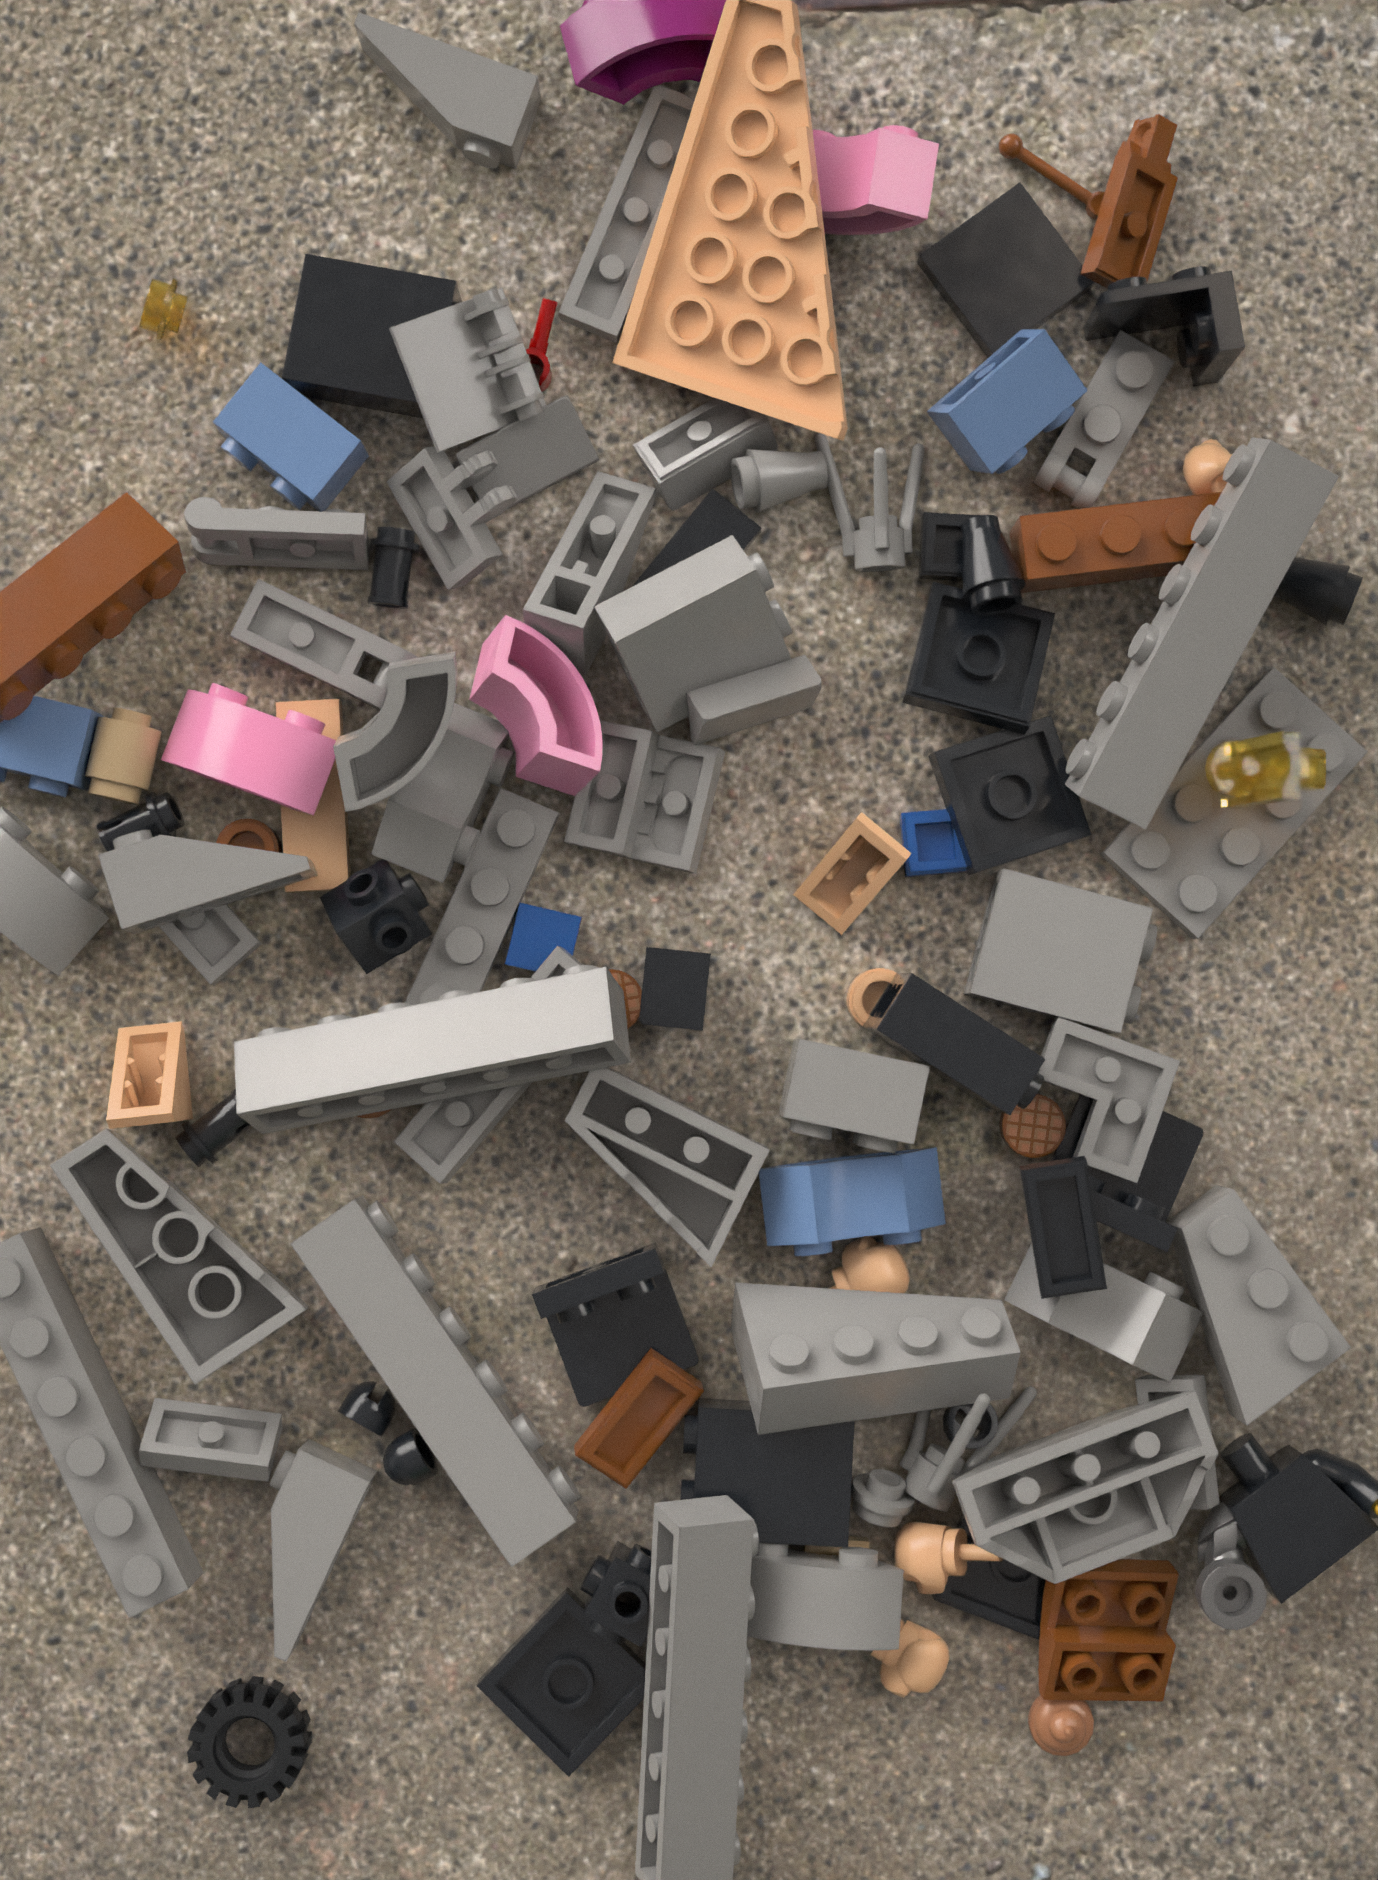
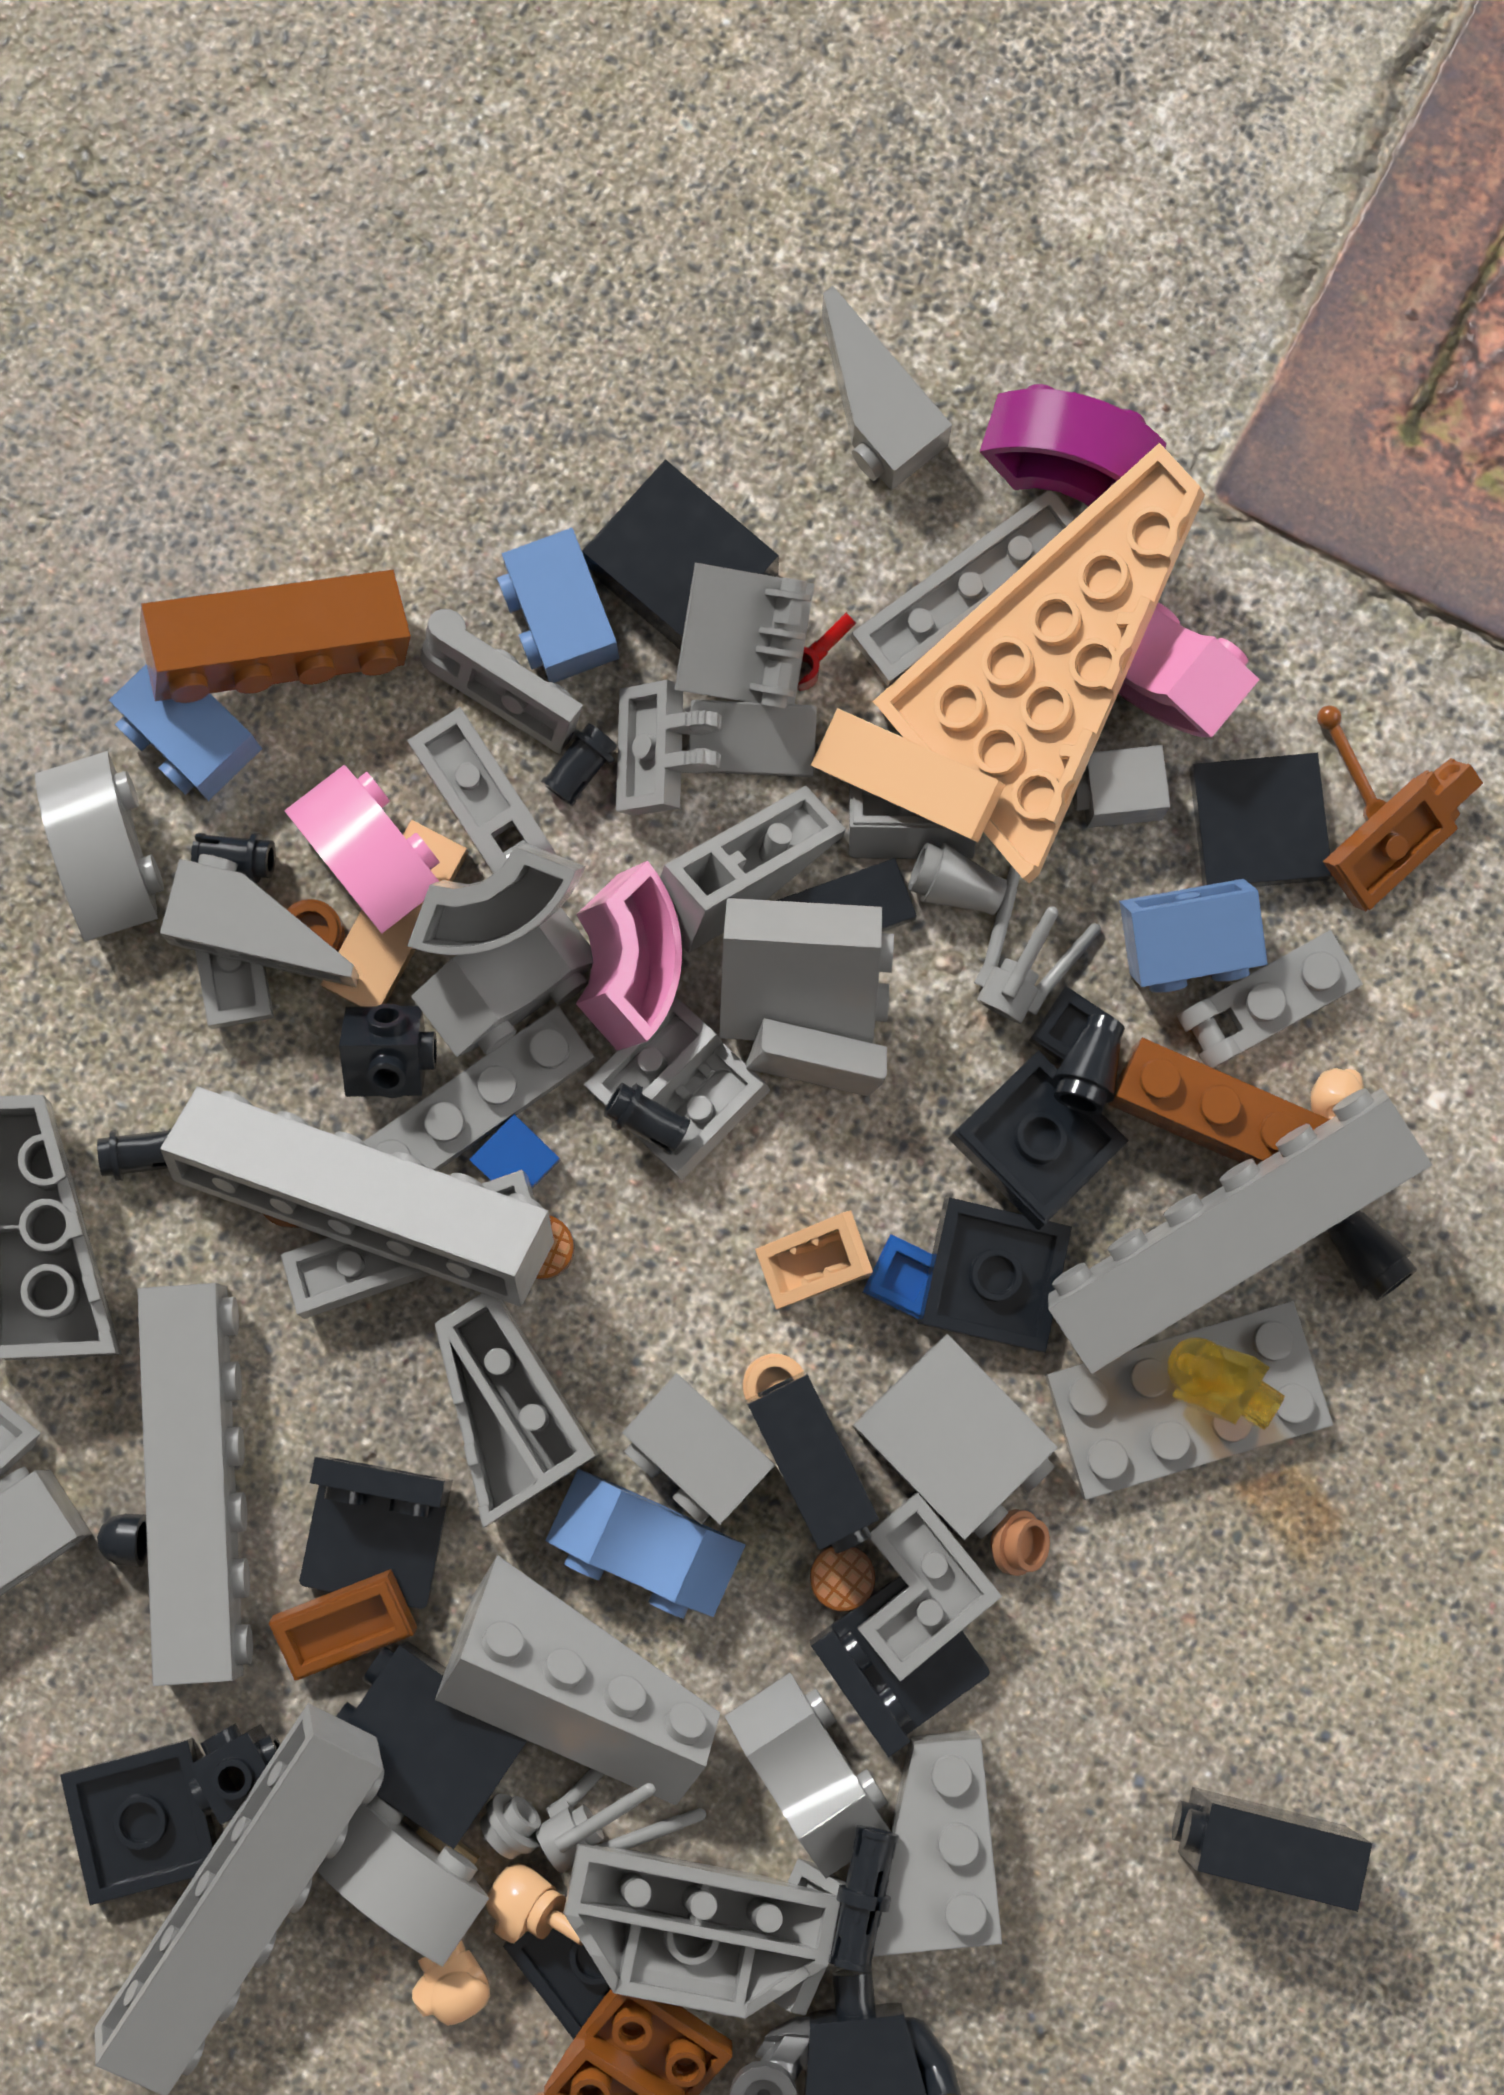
camera: 35 degrees right, 5 degrees down
(122, 756) = (254, 788): tan brick -> none
(150, 1077) = (108, 1074): light nougat slope -> none
(163, 308) = (520, 434): clear yellow plate -> none
(366, 1412) = (113, 1475): black hinge -> none
(636, 838) = (645, 1118): none -> black pin
(674, 988) = (601, 1268): black panel -> none
(683, 408) = (908, 775): none -> light nougat tile
(871, 1267) = (626, 1616): light nougat piece -> none
(874, 309) = (1123, 787): none -> light grey brick
(987, 1425) = (642, 1814): black hinge -> none
(1063, 1227) = (808, 1678): black tile -> none
(1165, 1007) = (1020, 1543): none -> nougat plate
(1192, 299) = (1398, 935): black bracket -> none
(1216, 1381) = (863, 1899): none -> black pin

